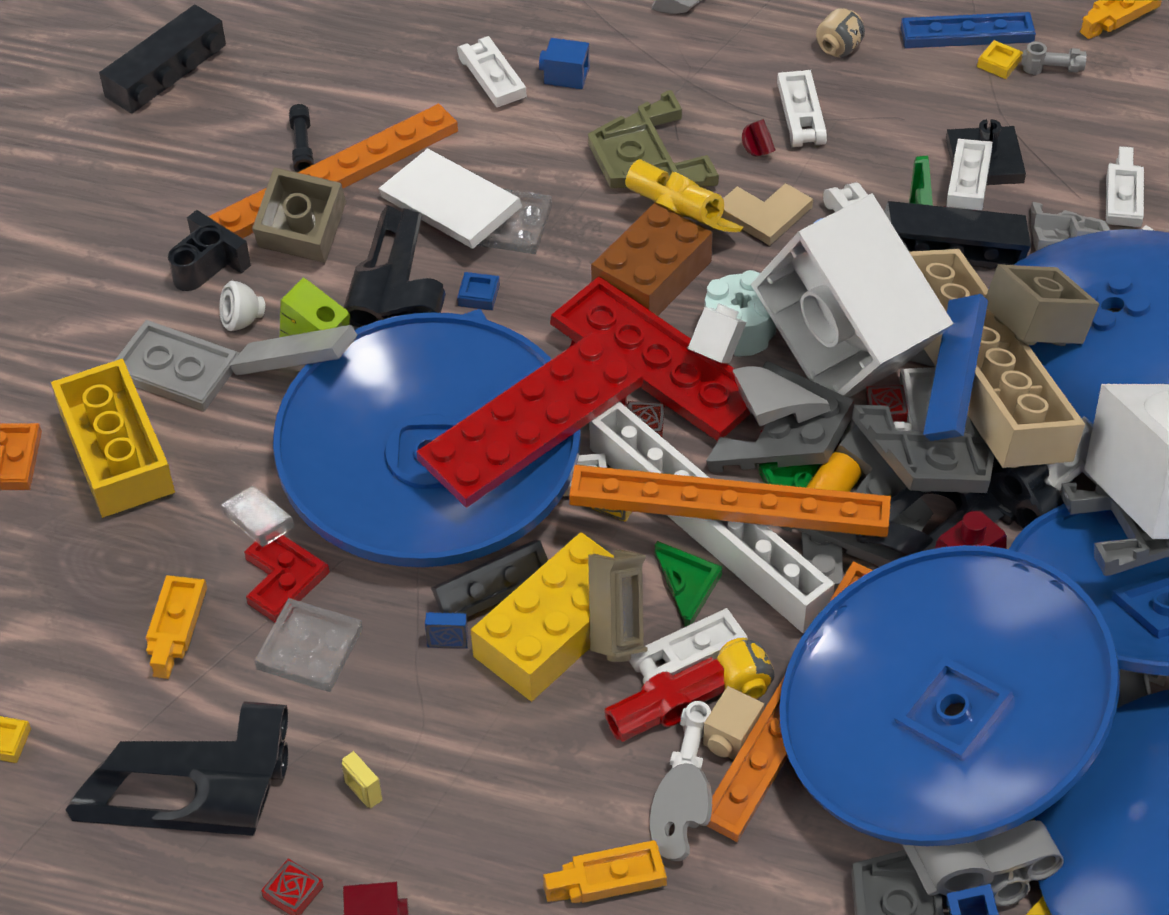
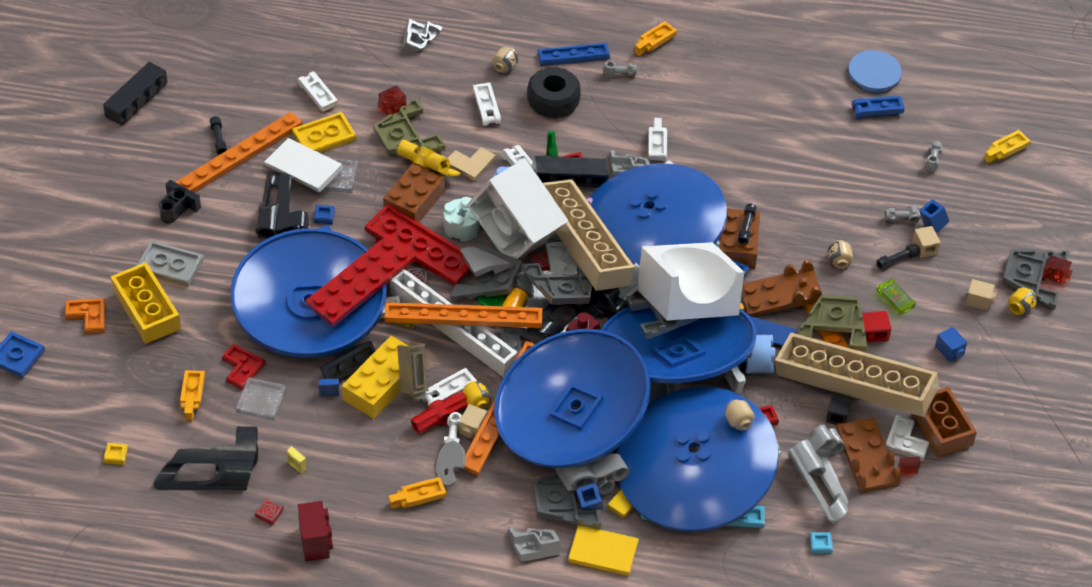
camera: 10 degrees left, 0 degrees up
(239, 306) = (199, 230): white brick -> none
(257, 515) = (226, 337): clear tile -> none
(294, 350) = (233, 252): light grey tile -> none
(299, 215) = (225, 179): dark tan brick -> none
(309, 310) = (240, 236): lime torso -> none
(498, 144) = (325, 133): none -> yellow tile
(565, 63) = (357, 85): blue brick -> none
(625, 91) = (391, 100): none -> clear red brick
(688, 579) = (445, 355): green tile -> none
(717, 333) = (451, 231): white brick -> none
(757, 139) = (464, 123): dark red plate -> none
(928, 91) = (553, 92): none -> black tyre
(956, 368) = (571, 242): blue tile -> none
(969, 174) = (576, 138): white plate -> none
(999, 59) = (591, 70): yellow tile -> none
(1006, 158) = (585, 125): black tile -> none
(1040, 304) = (612, 207): dark tan brick -> none

